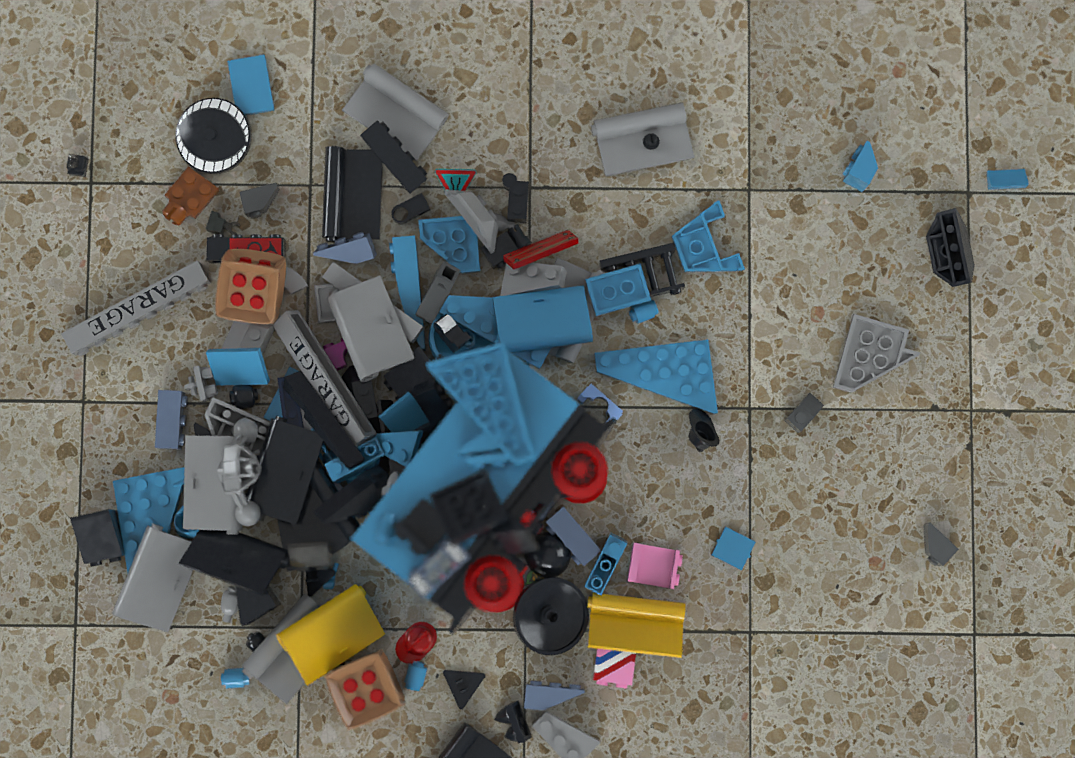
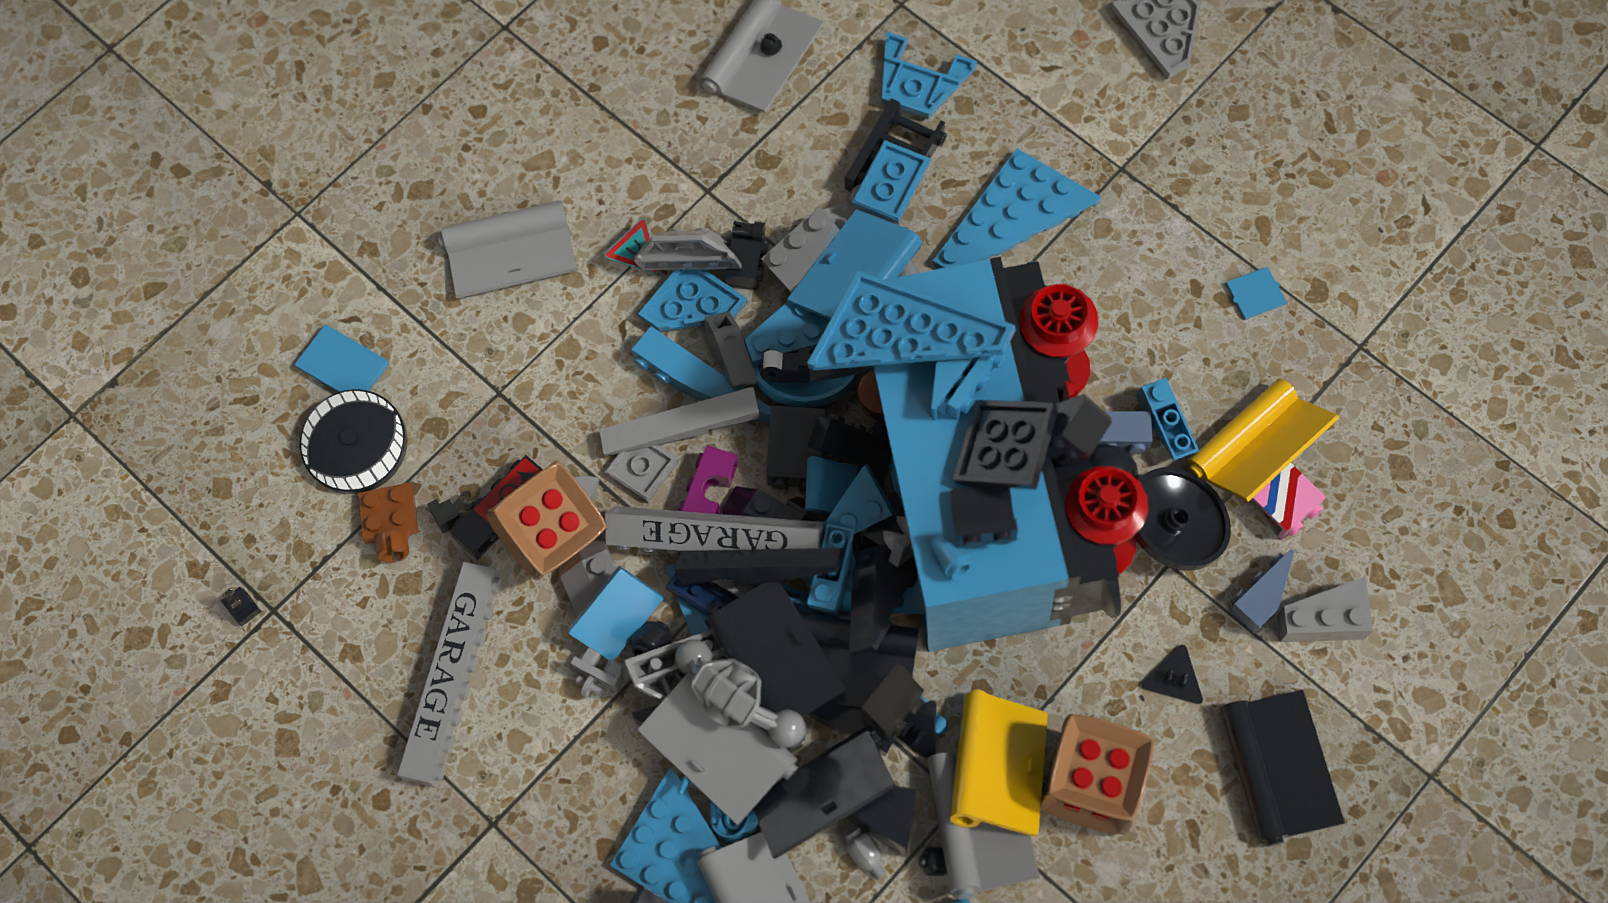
camera: 40 degrees left, 15 degrees down
(170, 419) = (603, 740): sand blue brick -> none
(258, 199) = (461, 452): dark grey slope -> none
(351, 193) = (549, 357): black door -> none
(352, 250) = (608, 397): sand blue slope -> none
(362, 321) = (704, 442): light grey door -> none
(393, 157) = (552, 281): black brick -> none
(415, 206) = (622, 310): black piece -> none
(415, 676) = (1123, 713): dark azure brick -> none
(416, 642) = (1085, 687): red piece -> none
(437, 568) = (1043, 535): brick -> none
(517, 198) = (707, 205): black hinge -> none
(519, 729) = (1253, 651): black tile -> none
(540, 249) = (781, 220): red tile -> none
(643, 311) = (933, 182): dark azure brick -> none
(654, 566) = (1211, 379): bright pink panel -> none
(702, 430) = (1108, 226): black piece -> none
(804, 413) = (1172, 123): dark grey slope -> none
(937, 546) = (1415, 105): dark grey slope -> none

